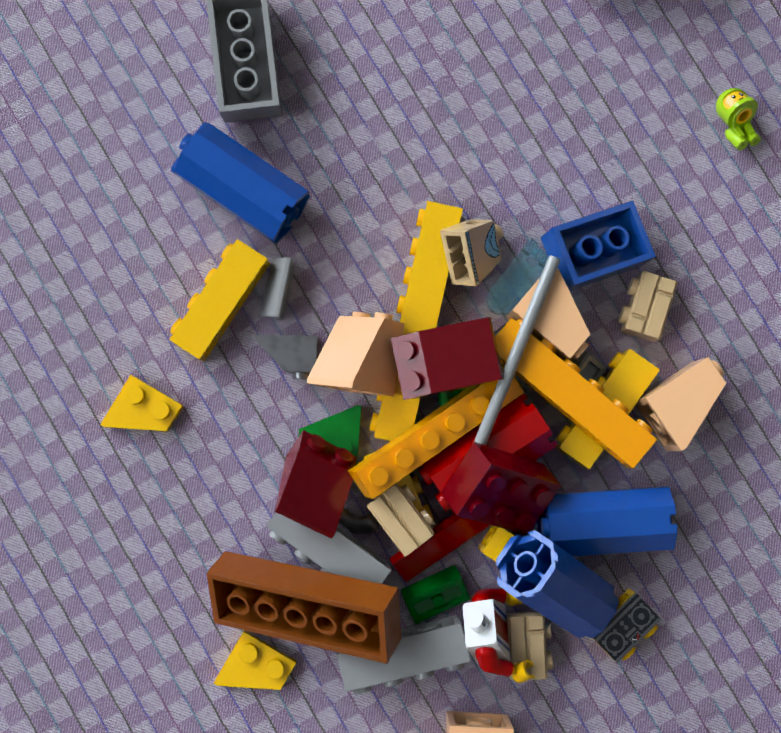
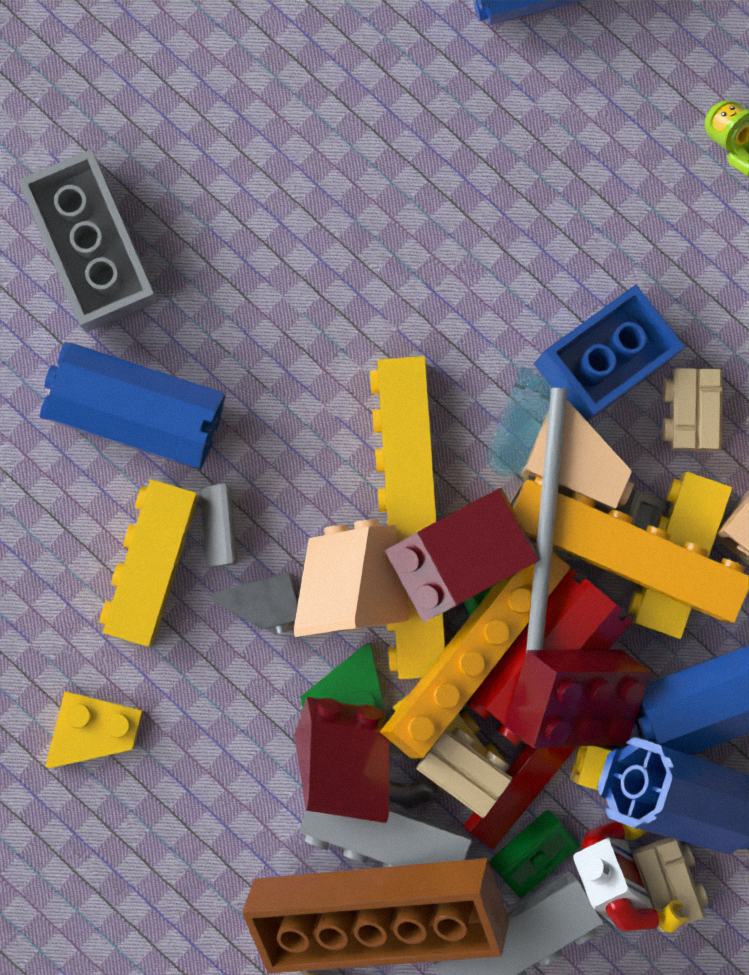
camera: 20 degrees left, 0 degrees up
(471, 250) = (451, 406): tan torso -> none

